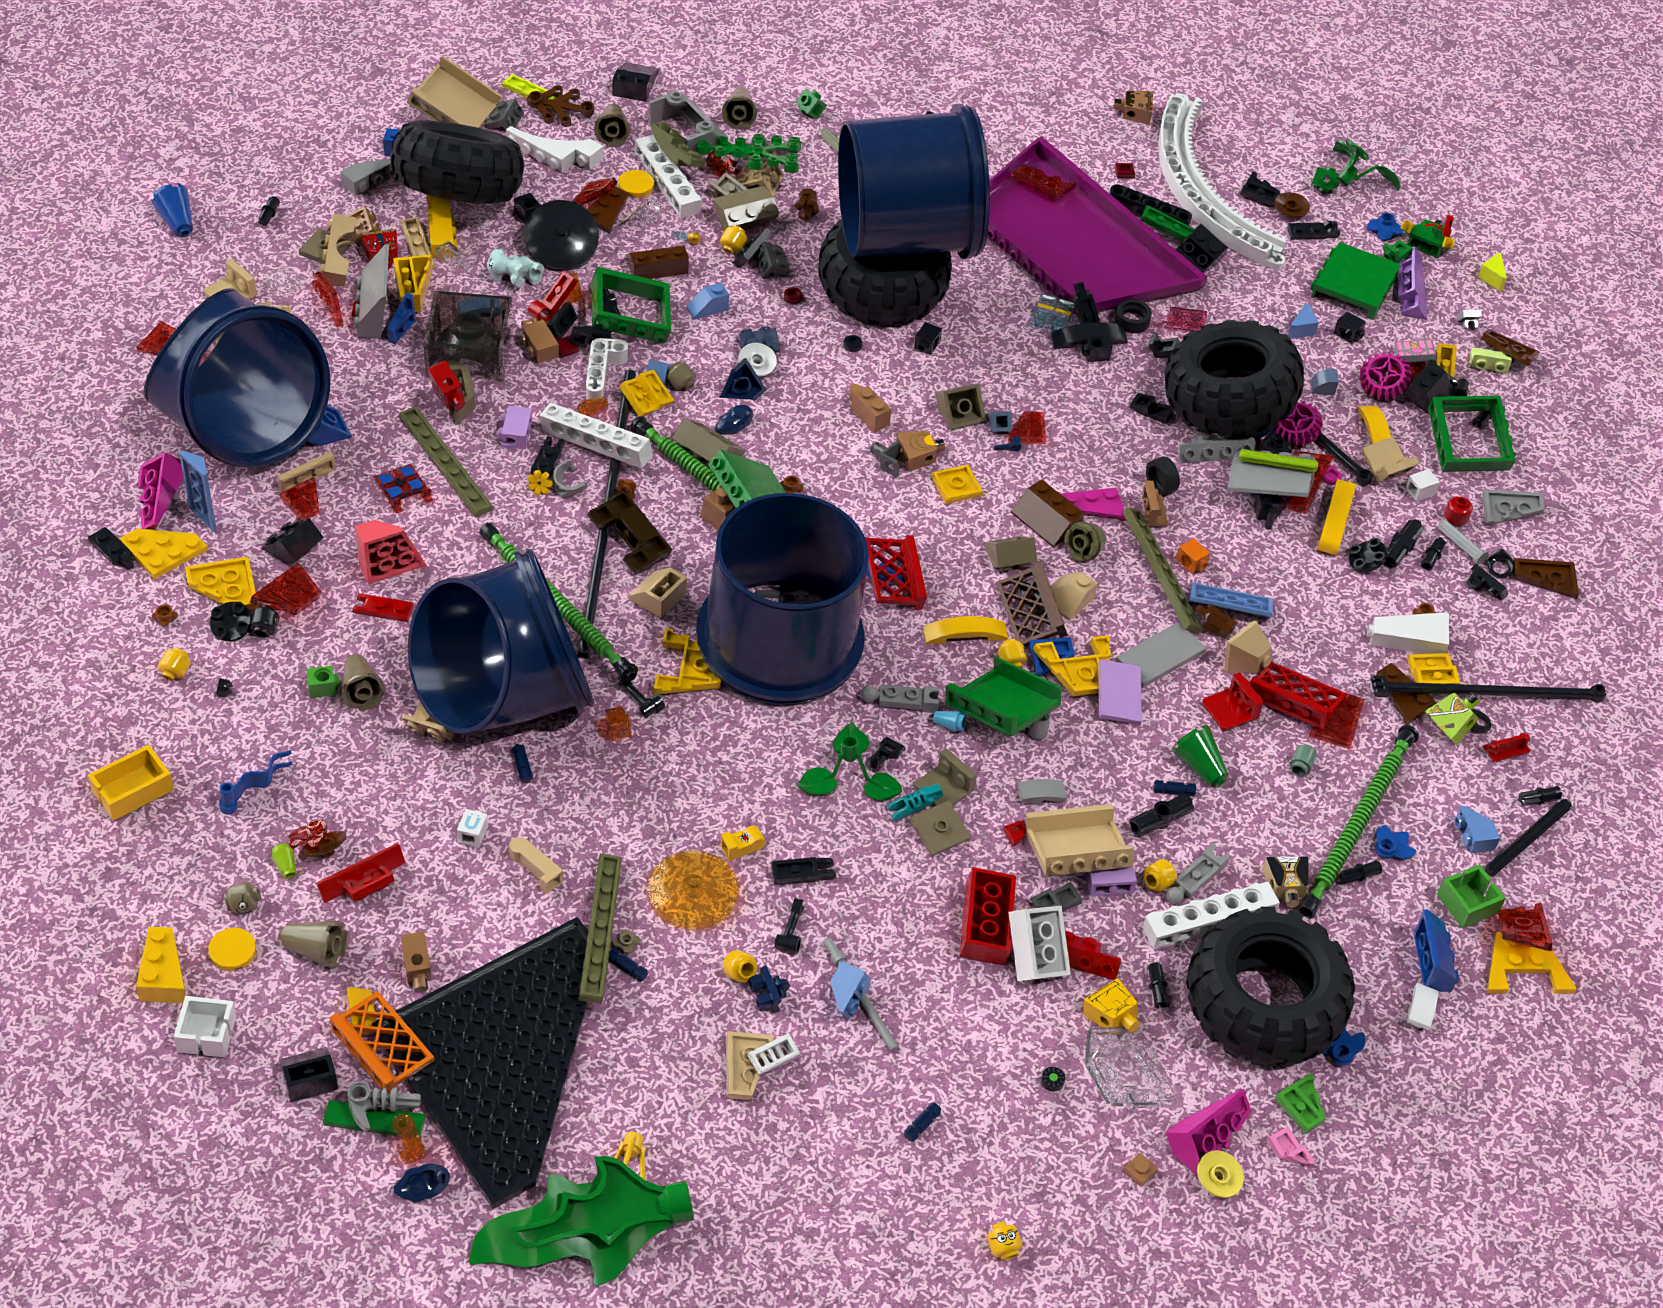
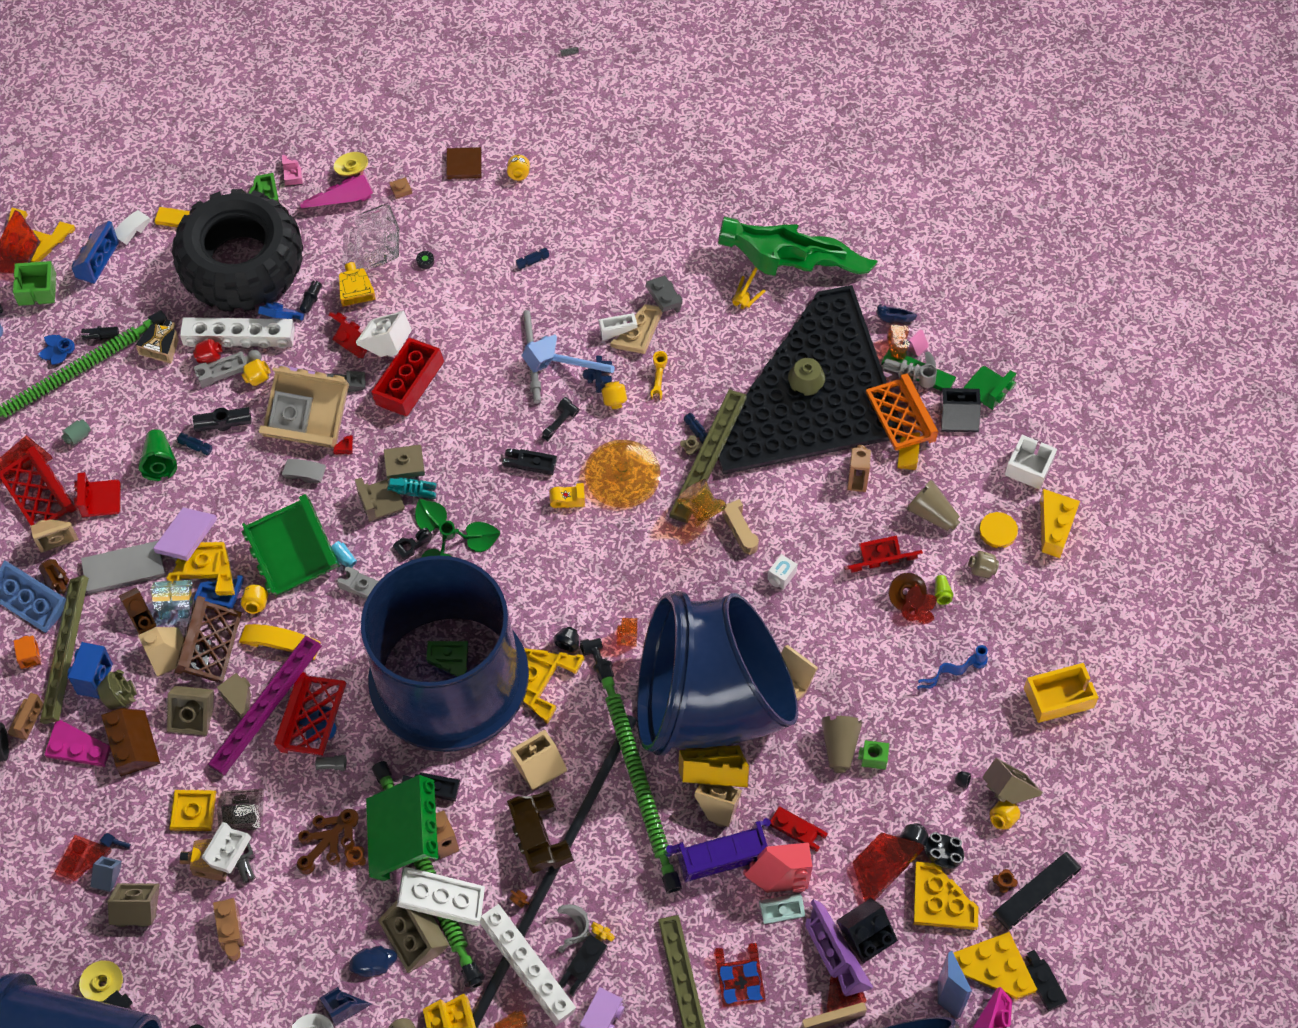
camera: 155 degrees left, 10 degrees up
(128, 611) = (1036, 890): none -> black beam
(170, 682) = (1010, 783): none -> dark tan slope
(274, 1118) = (991, 385): none -> green bracket
(312, 505) = (835, 951): none -> medium lavender wedge
(384, 1153) = (918, 343): none -> bright pink slope
(451, 552) = (721, 853): none -> dark purple container
(513, 1047) = (806, 376): none -> olive cone
(582, 859) = (701, 502): none -> clear yellow hat
(678, 701) = (567, 639): none -> black cone
(690, 463) = (441, 896): none -> white tile
(702, 1021) = (660, 360): none -> yellow brick
(731, 1111) = (664, 294): none -> dark grey bracket
(793, 987) = (583, 363): none -> light blue bar
(830, 470) = (327, 838): none -> reddish brown plant
(902, 441) = (225, 848): none -> white bracket
(914, 490) = (241, 808): none -> clear smoke slope
(941, 567) = (264, 705): none -> magenta tile
(951, 351) = (97, 973): none -> light yellow dish
(974, 571) = (236, 694): none -> dark tan slope
(1080, 1233) = (464, 163): none -> reddish brown tile
(1090, 626) = (172, 597): none -> clear light blue hips
(1091, 832) = (290, 412): none -> light grey tile
(1119, 615) = (137, 610): none -> reddish brown slope
(1121, 547) = (89, 669): none -> blue brick
(1178, 944) = (277, 310): none -> blue wing
(1226, 878) = (207, 351): none -> red head
(1386, 1039) = (169, 216): none -> yellow tile

